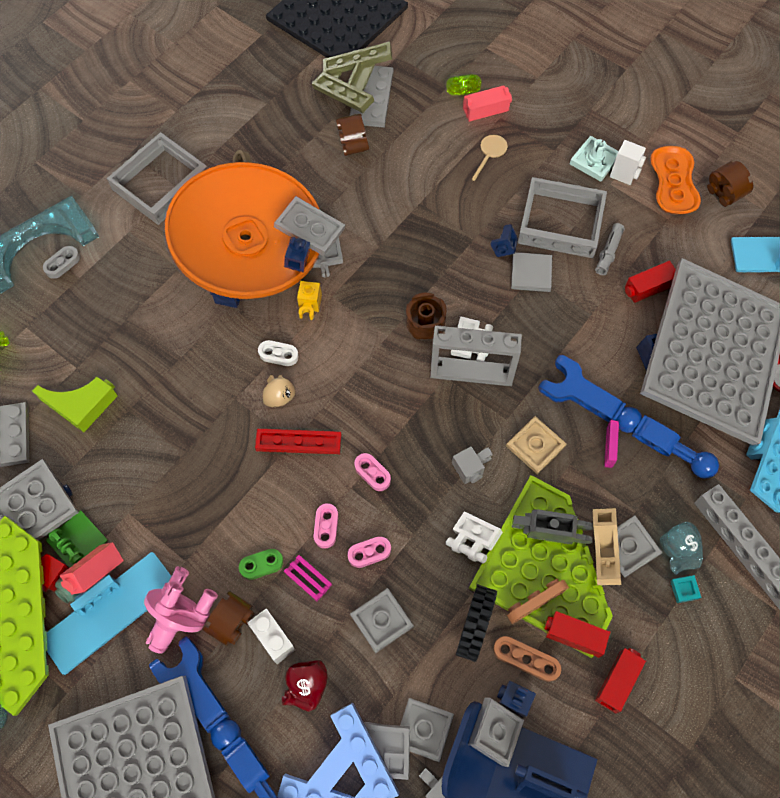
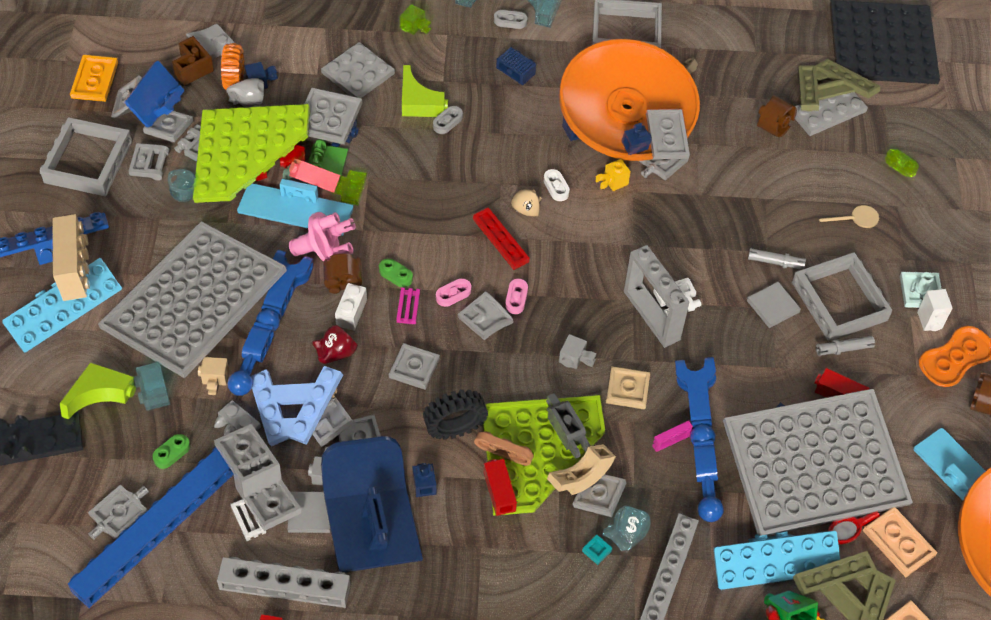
camera: 50 degrees right, 10 degrees down
(118, 293) = (516, 65): none -> dark blue brick
(128, 396) = (445, 122): none -> light grey plate
(128, 537) = (351, 187): none -> clear neon green hinge
(369, 552) = (457, 329): bright pink plate -> none
(373, 515) = (485, 316): none -> light grey plate
(424, 314) = (669, 251): reddish brown brick -> none
(476, 530) = (525, 385): white plate -> none
(485, 240) = (777, 259): none -> light grey pin
(487, 103) = (897, 186): coral brick -> none
(496, 732) = (391, 473): light grey tile -> none
(507, 243) = (782, 270): dark blue bracket -> none
(538, 659) = (455, 465): nougat plate -> none
(620, 680) = (491, 540): red brick -> none

